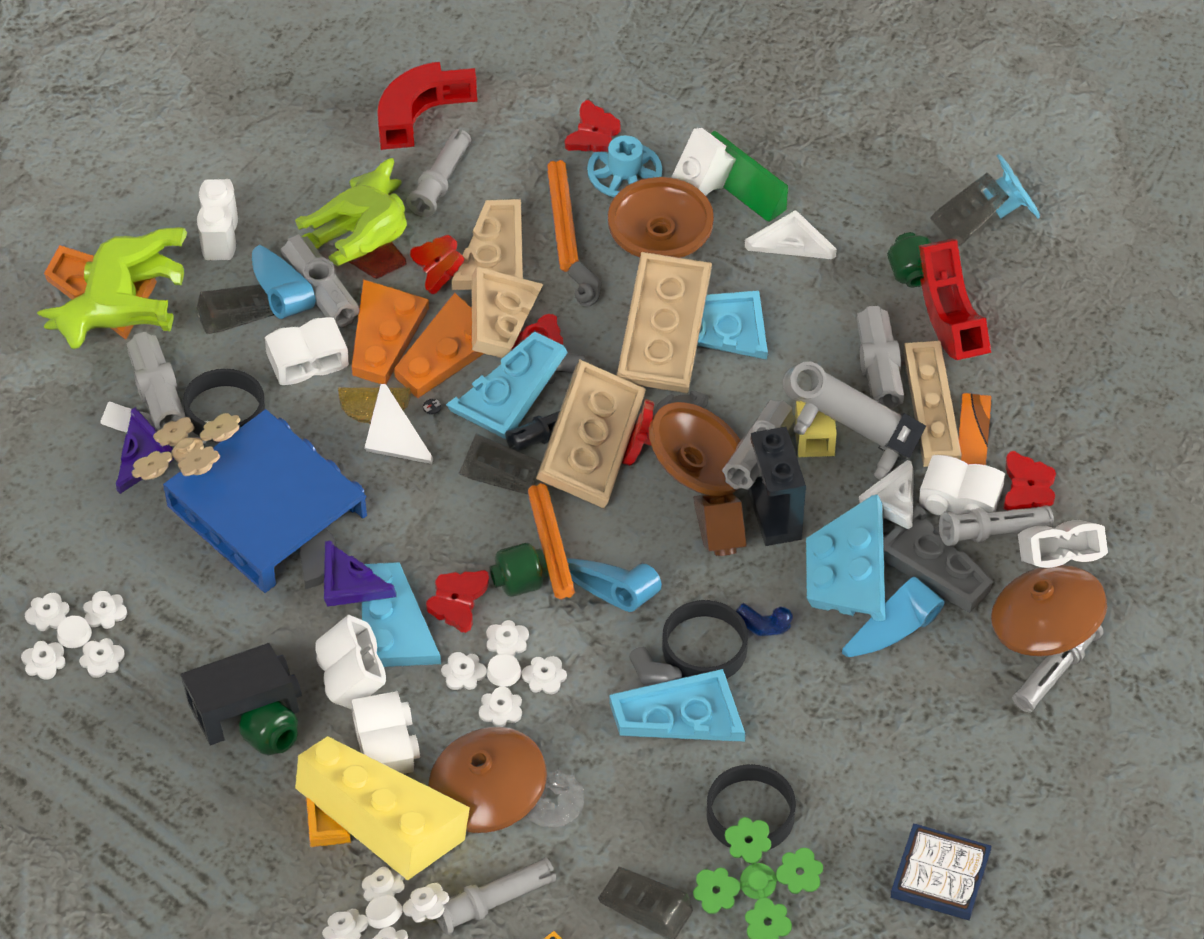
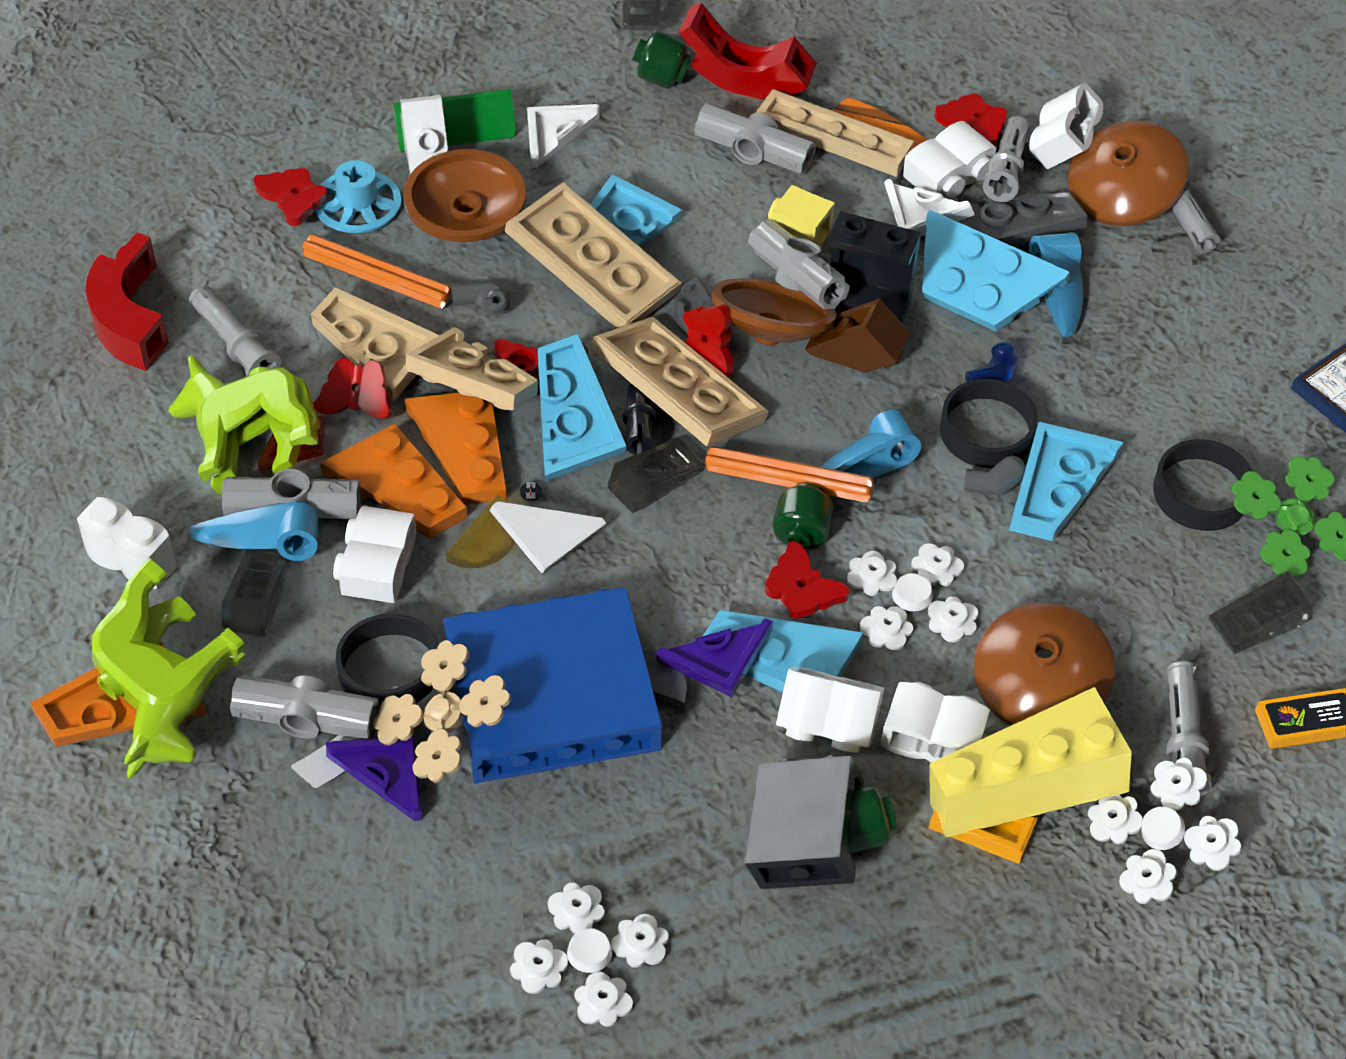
camera: 60 degrees left, 0 degrees up
(892, 431) = (803, 177): light grey piece -> none

